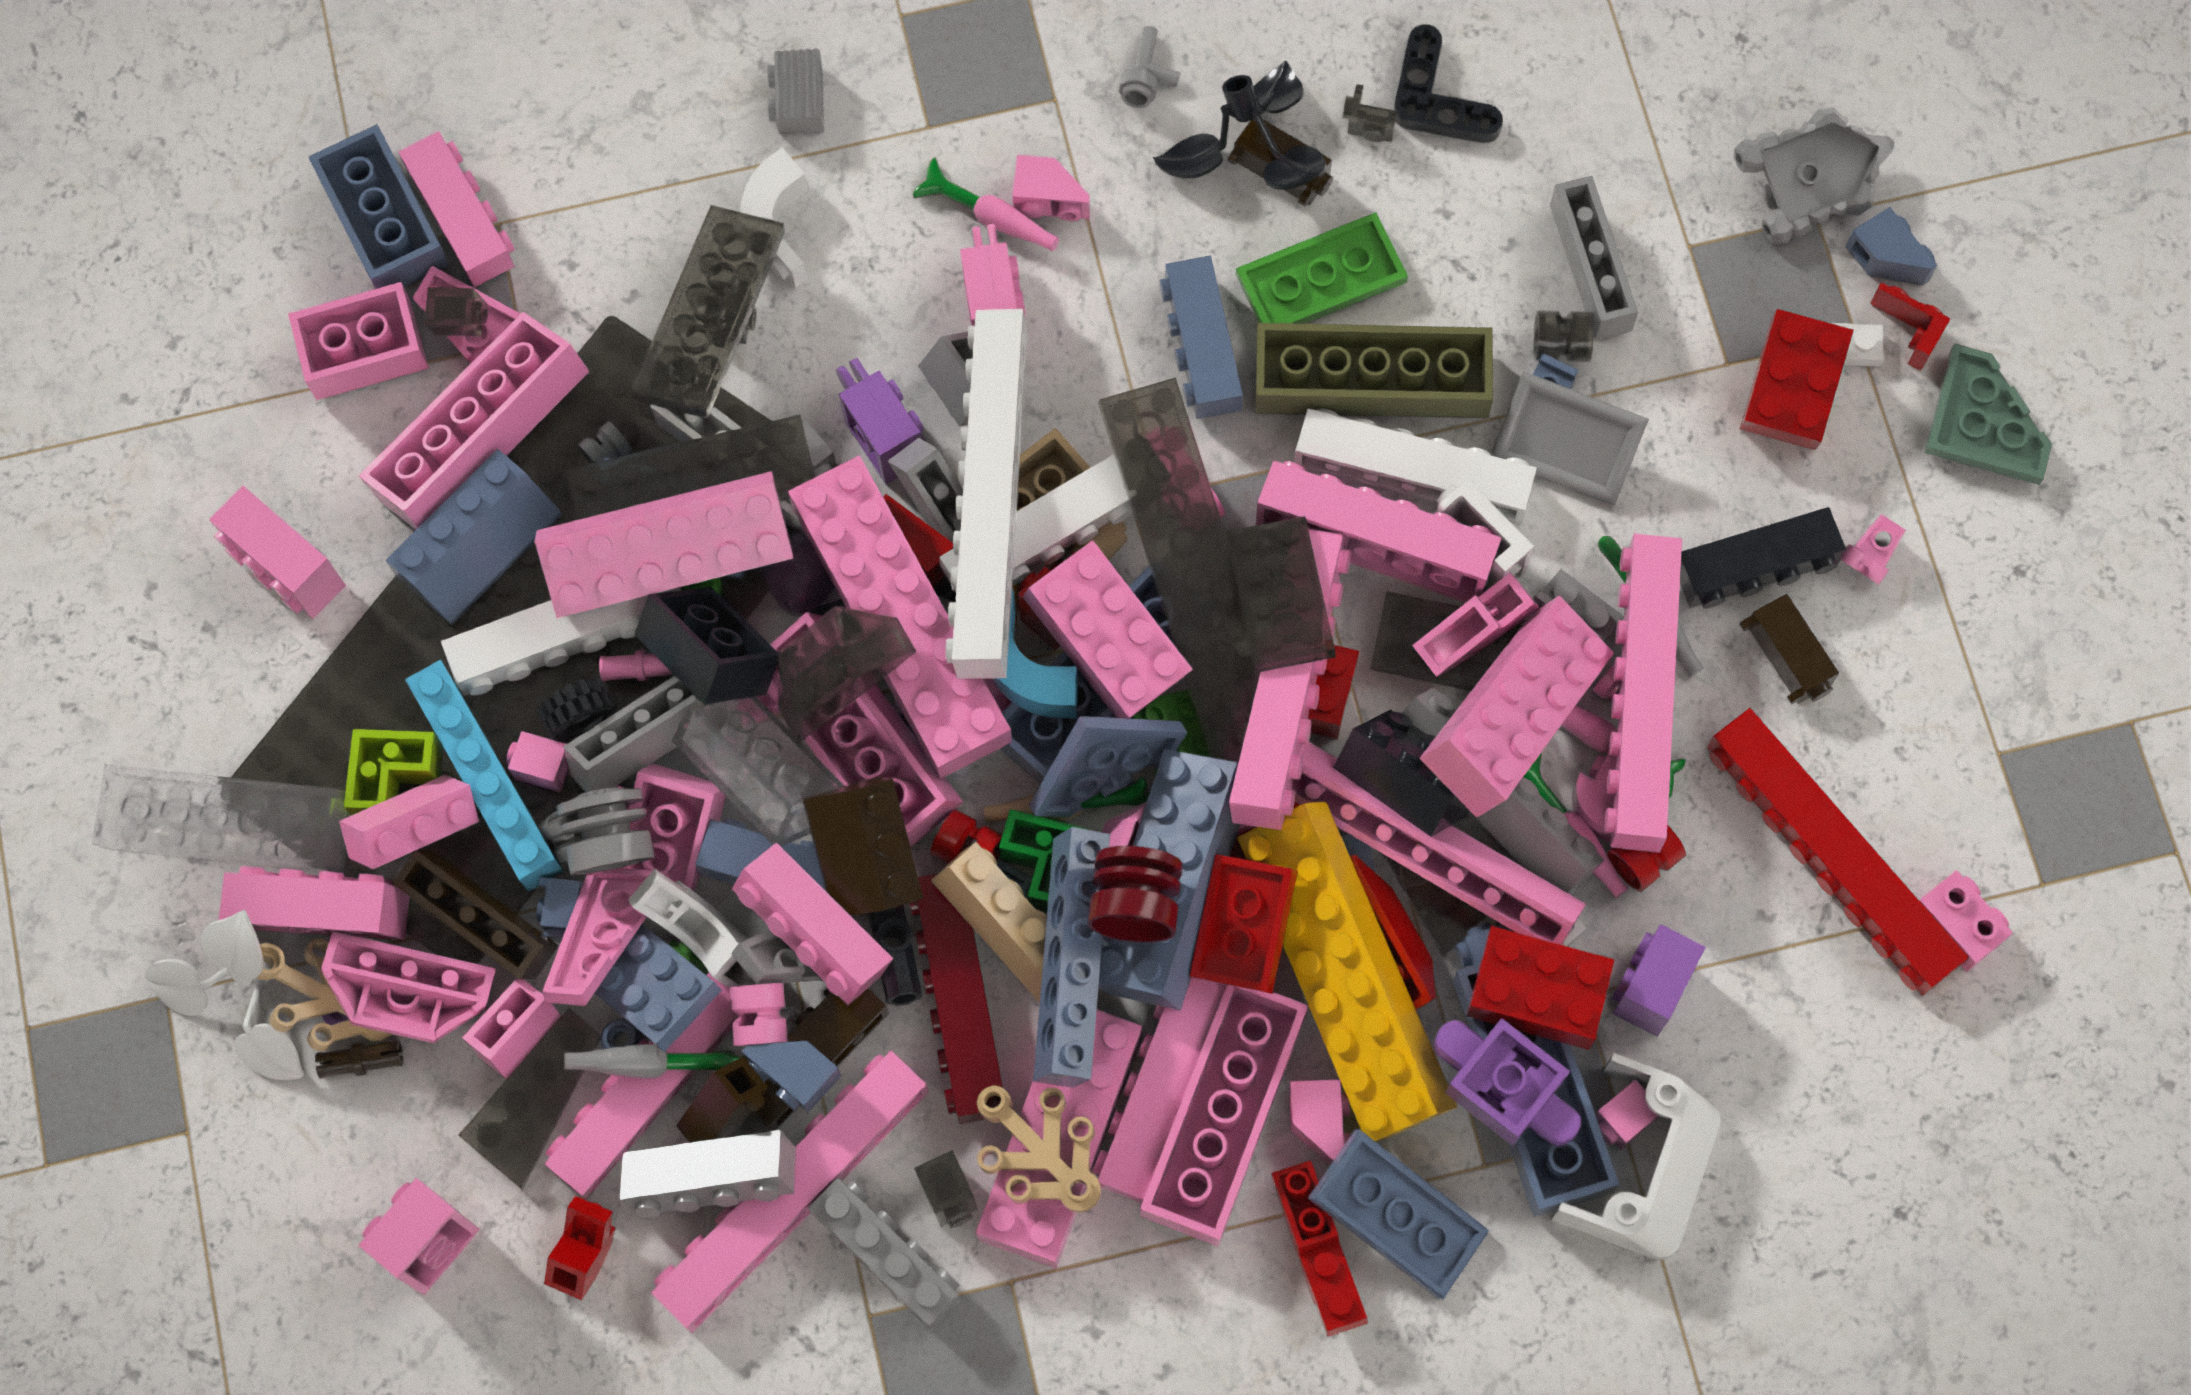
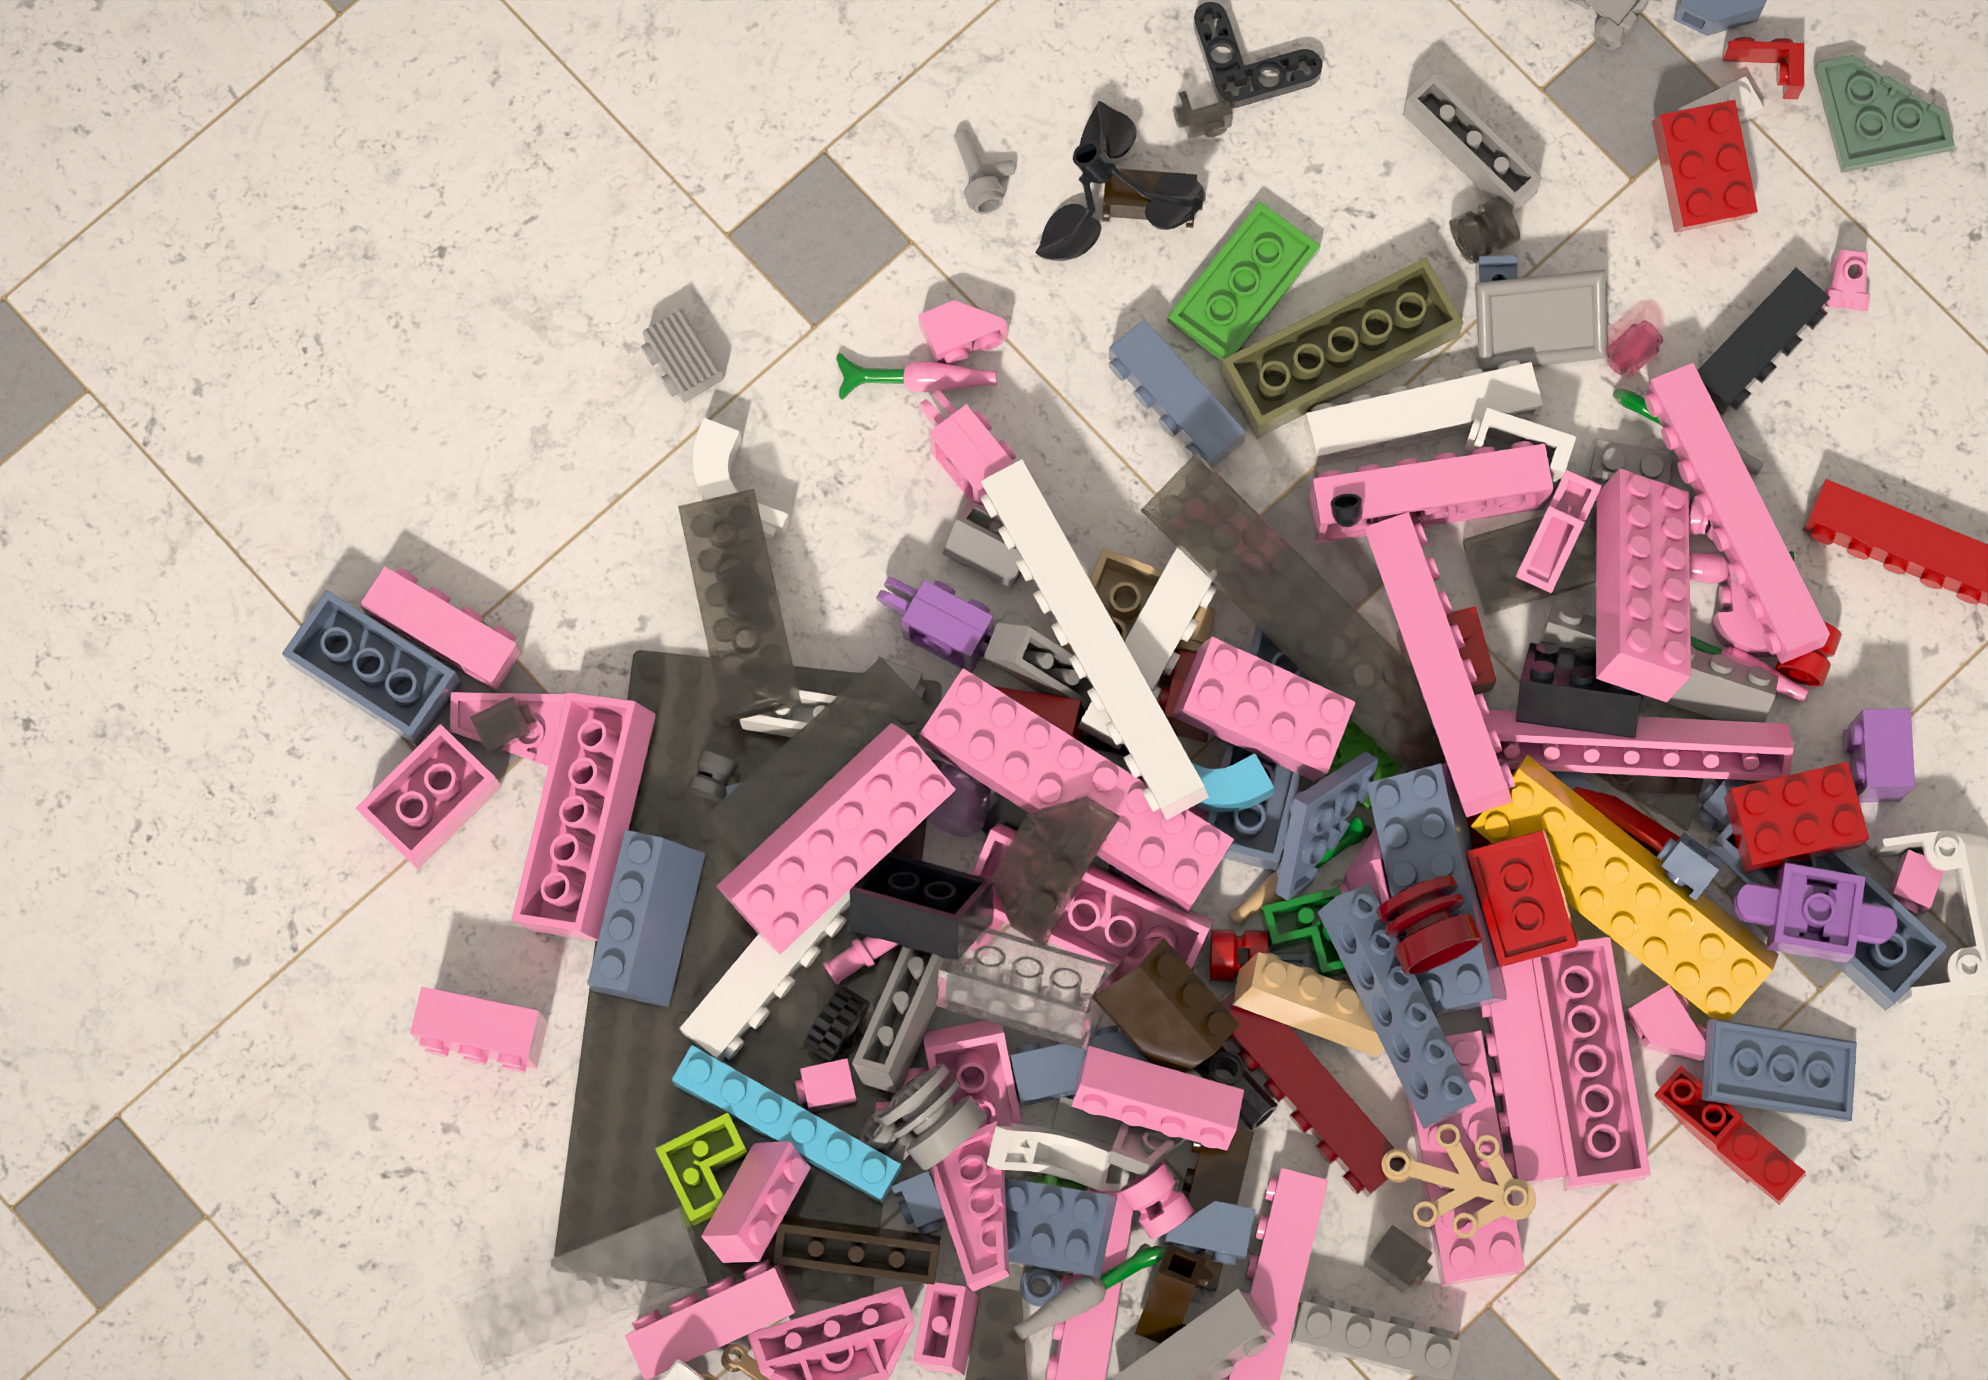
camera: 30 degrees left, 5 degrees up
(1280, 594) = (1391, 595): clear smoke plate -> none
(1285, 500) = (1347, 509): none -> black hinge
(1416, 976) = (1689, 864): none -> brick
(1640, 506) = (1634, 348): none -> clear pink brick
(1792, 650) = (1830, 408): dark brown brick -> none

